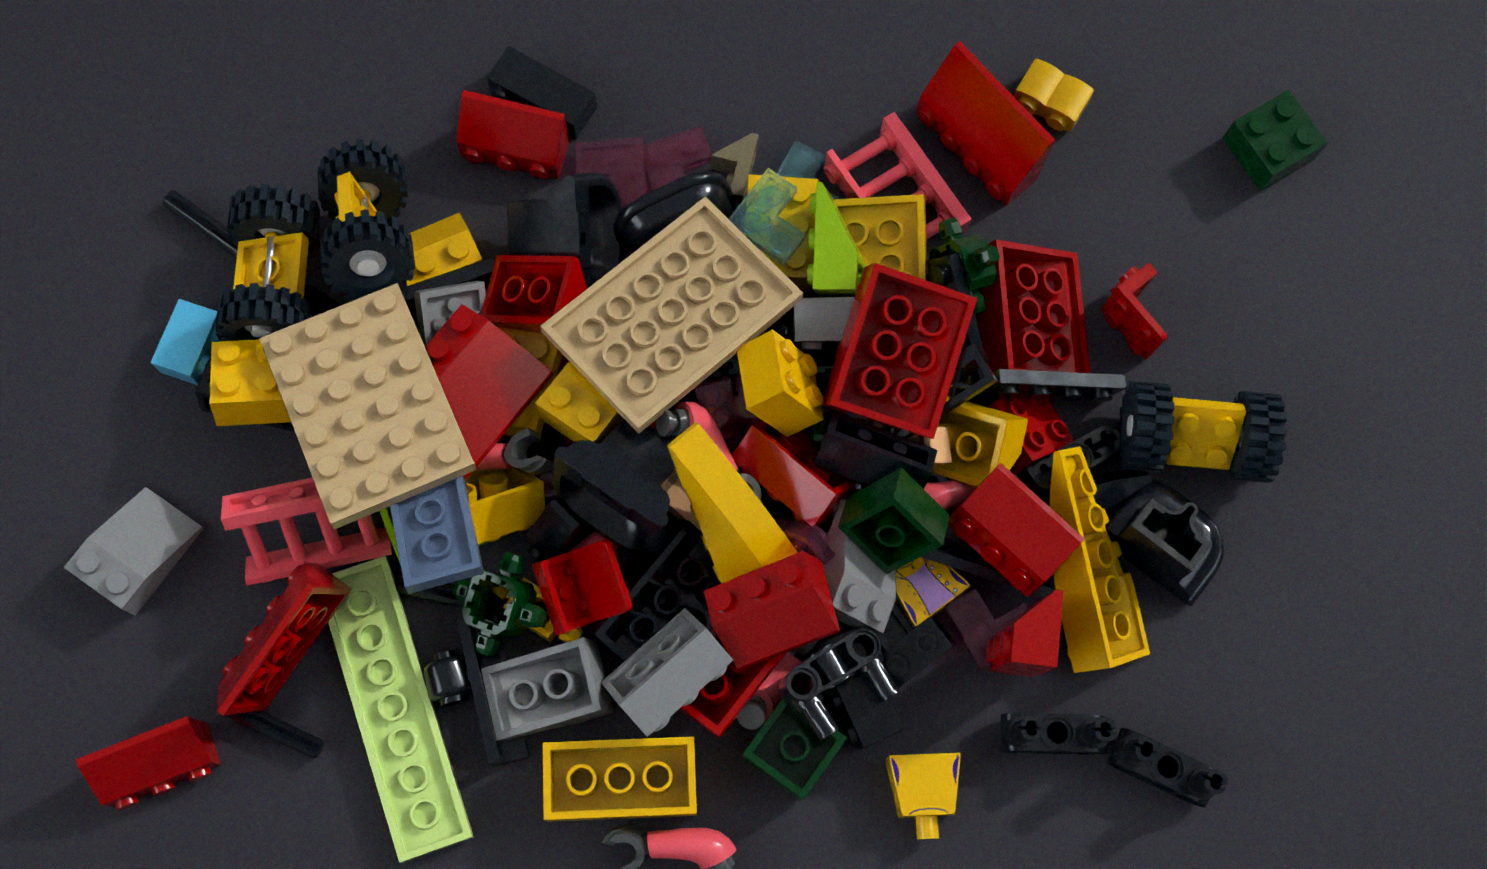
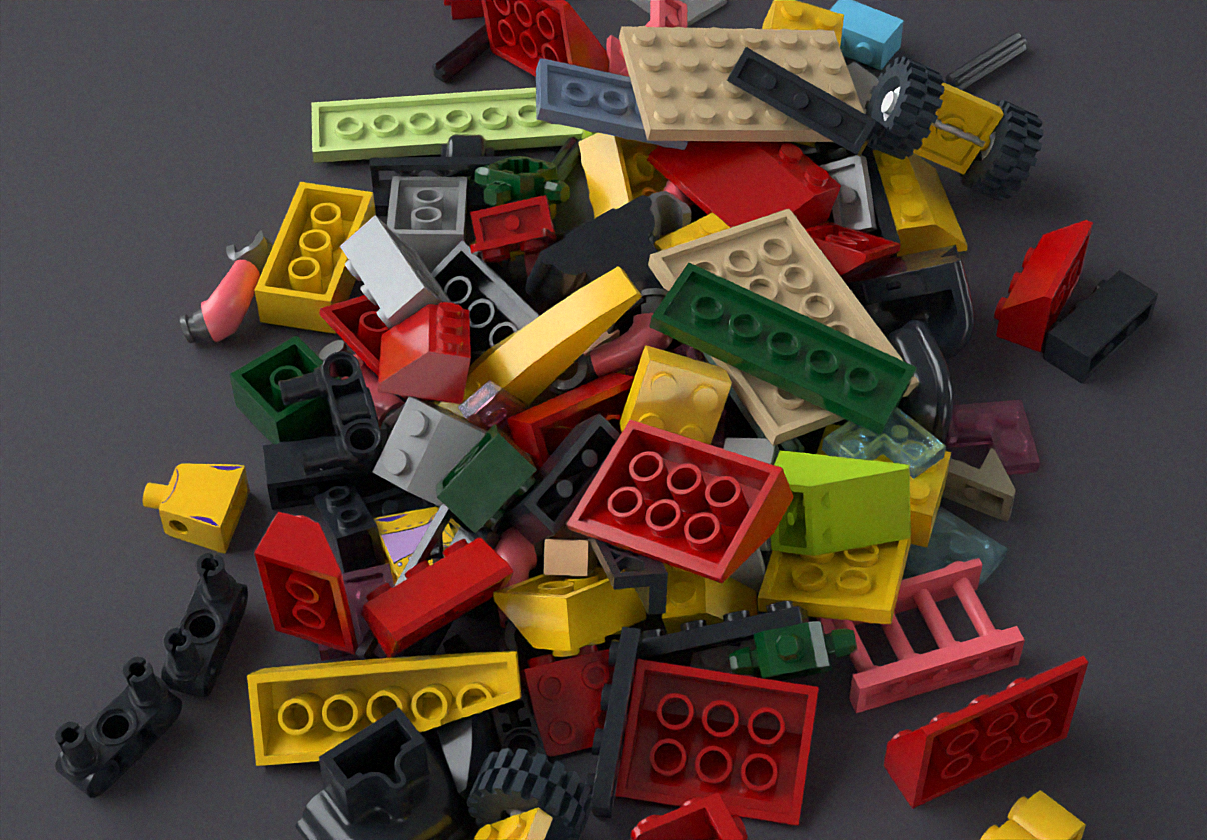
camera: 110 degrees right, 25 degrees down
(273, 243) = (864, 56): black plate -> none
(398, 333) = (804, 102): none -> black fence
(620, 160) = (998, 381): clear pink plate -> none
(718, 299) = (783, 348): none -> dark green plate

